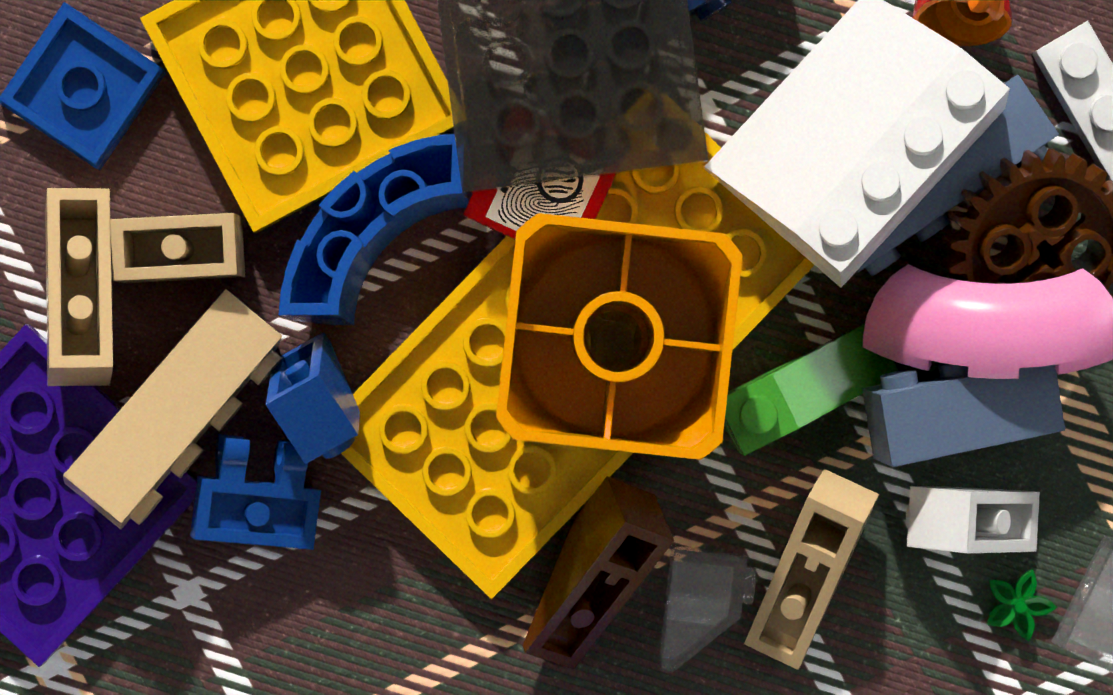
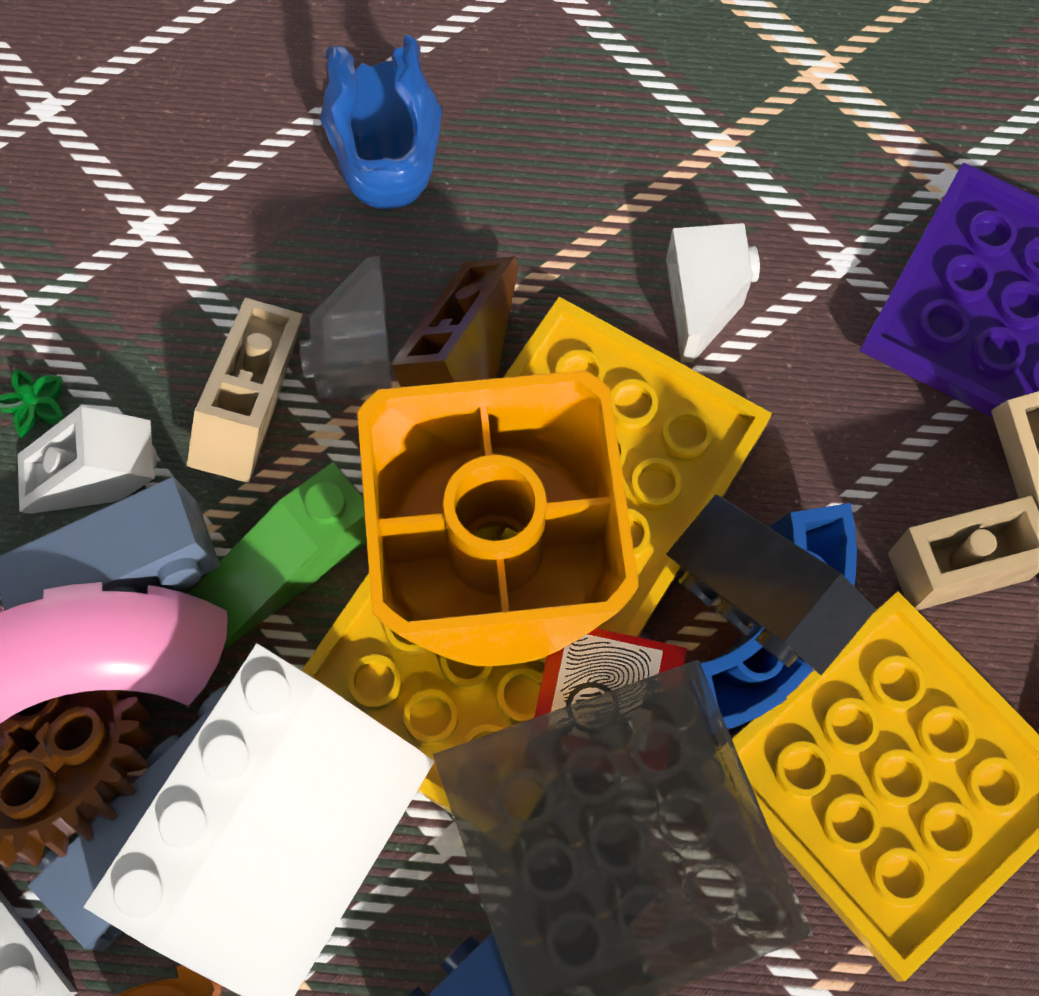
camera: 160 degrees right, 20 degrees down
(173, 410) = (923, 394): tan brick -> none
(255, 511) = (807, 329): blue plate -> none
(313, 400) = (790, 431): blue slope -> none
(338, 586) = (708, 281): none -> white slope
(385, 245) = (769, 585): none -> black brick

